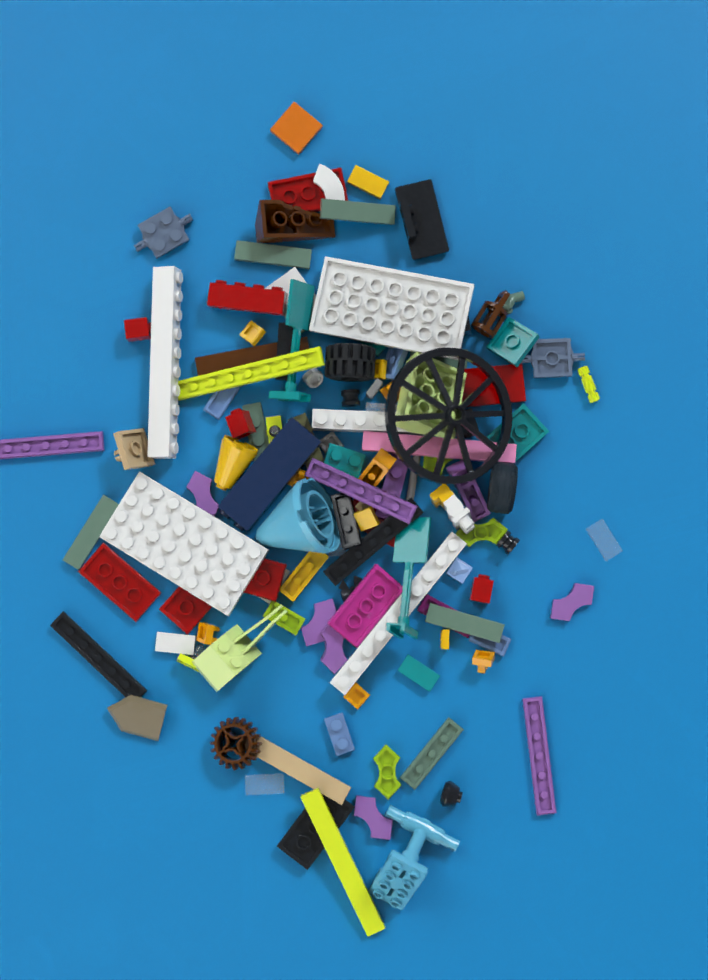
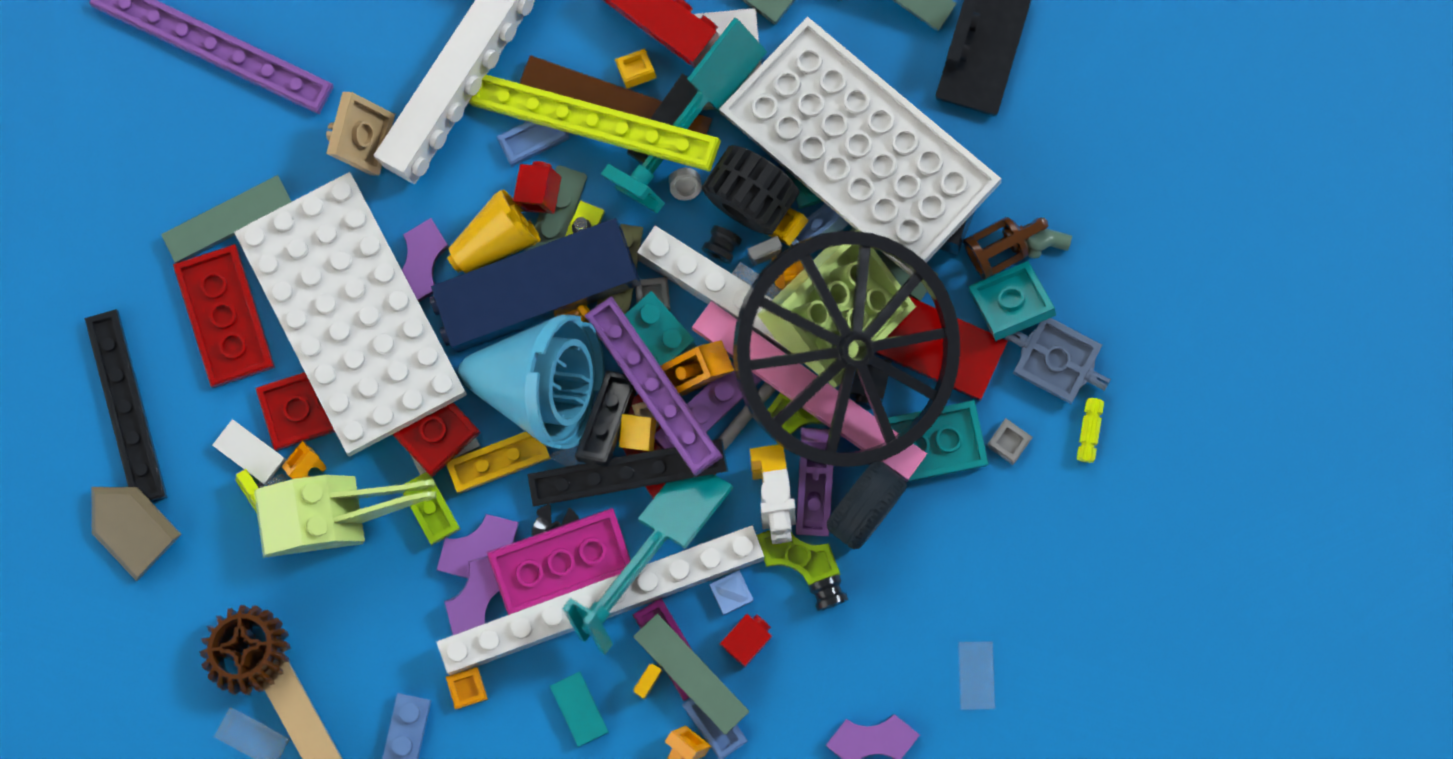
camera: 35 degrees right, 5 degrees down
(551, 413) = (1009, 441): none -> light grey tile

